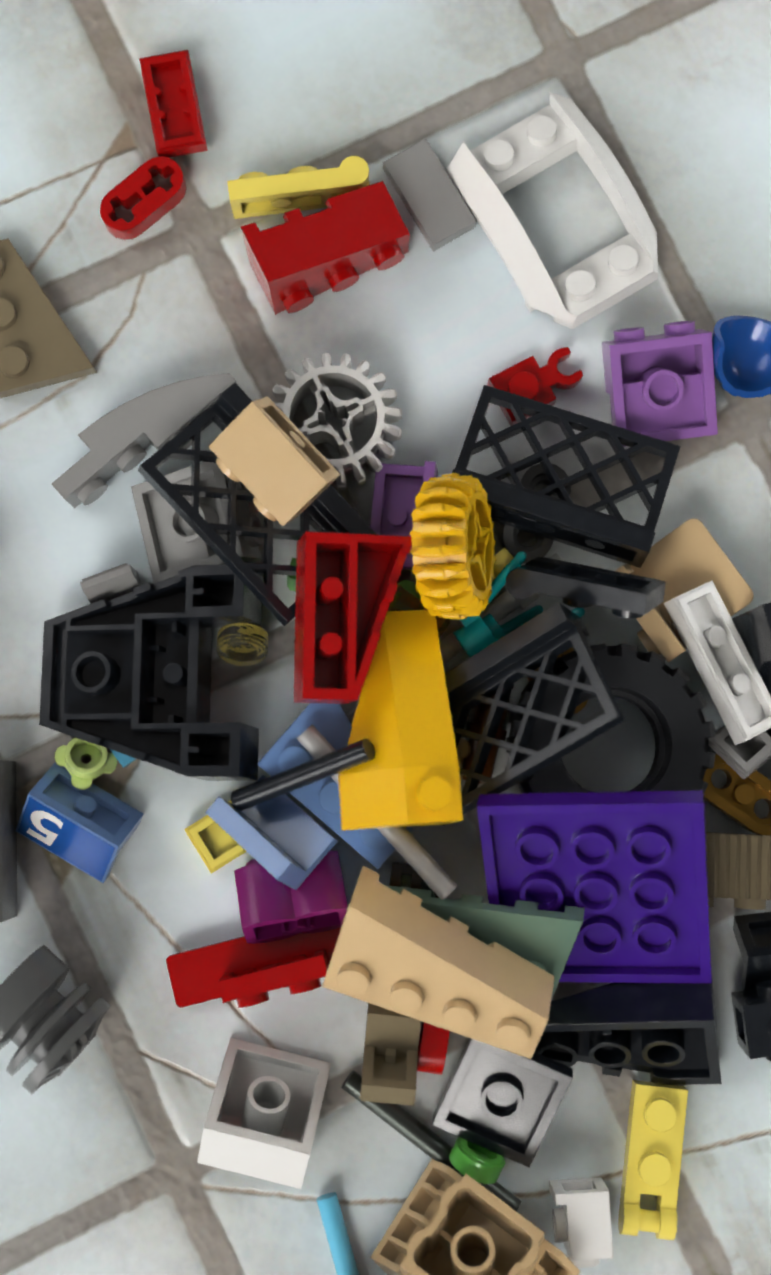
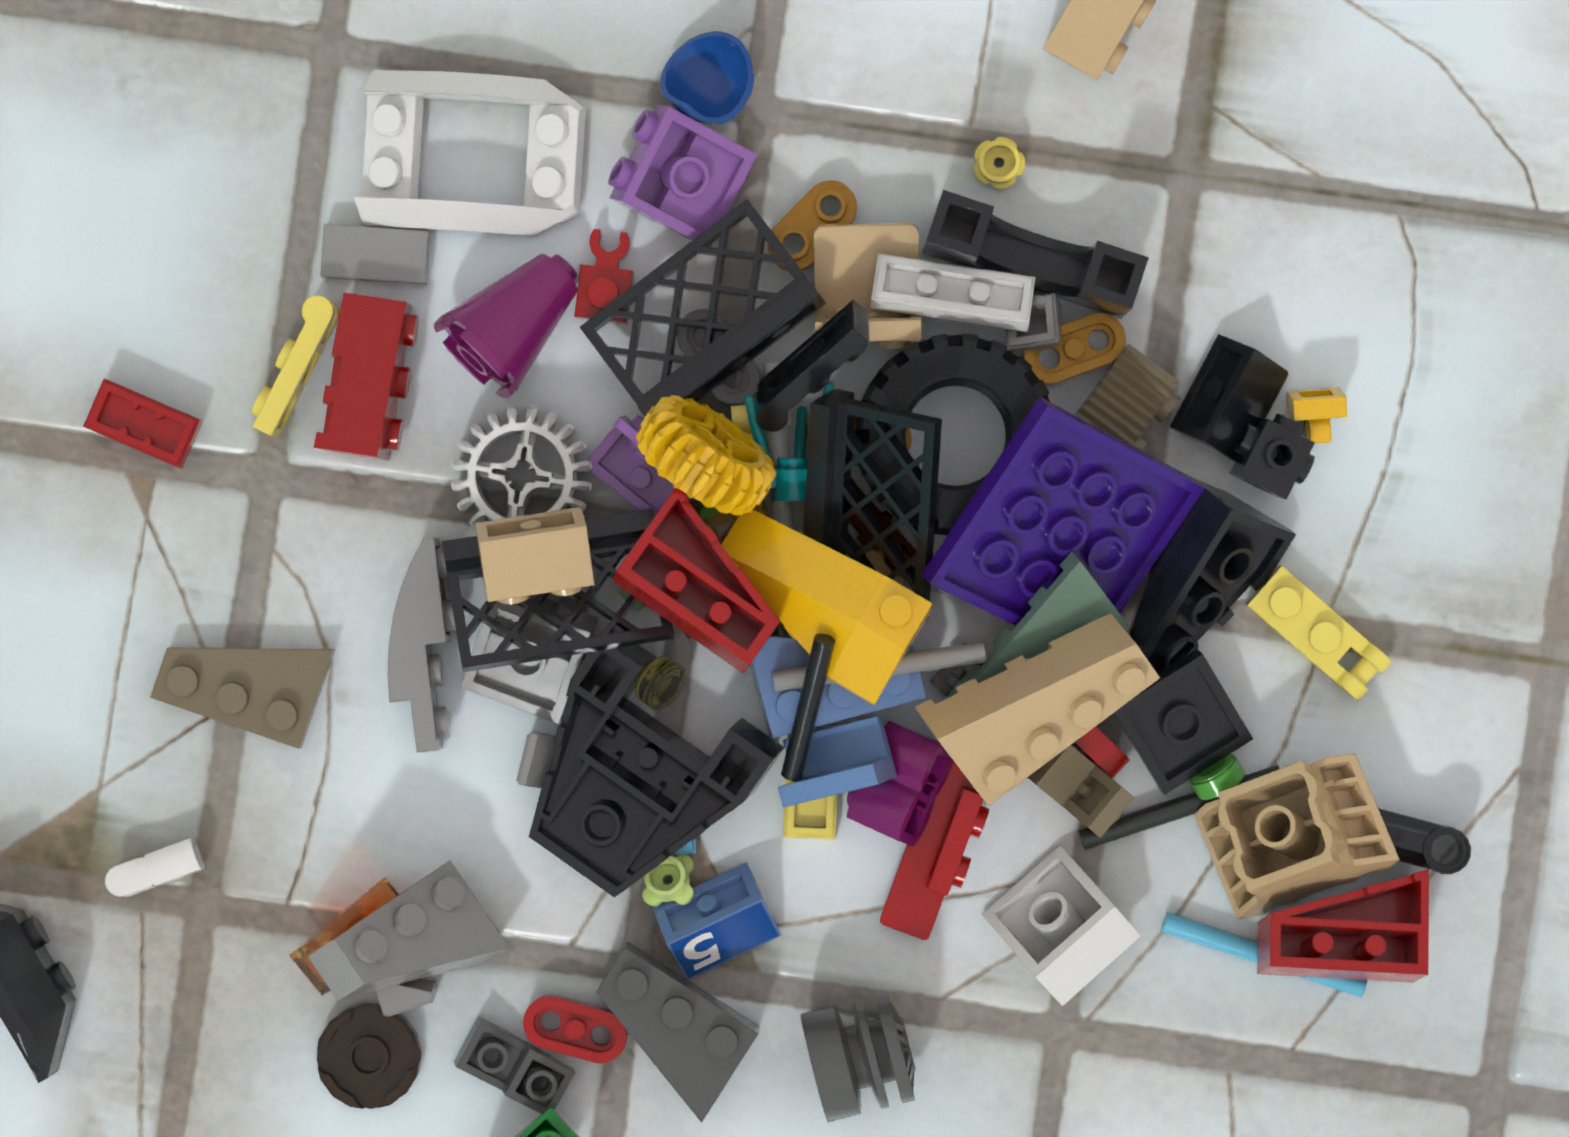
camera: 55 degrees left, 5 degrees up
(140, 193) = (221, 504): red beam -> none
(450, 327) = (510, 321): none -> magenta cone
(583, 1219) = (1325, 724): white brick -> none
(698, 506) = (807, 216): none -> pearl gold plate

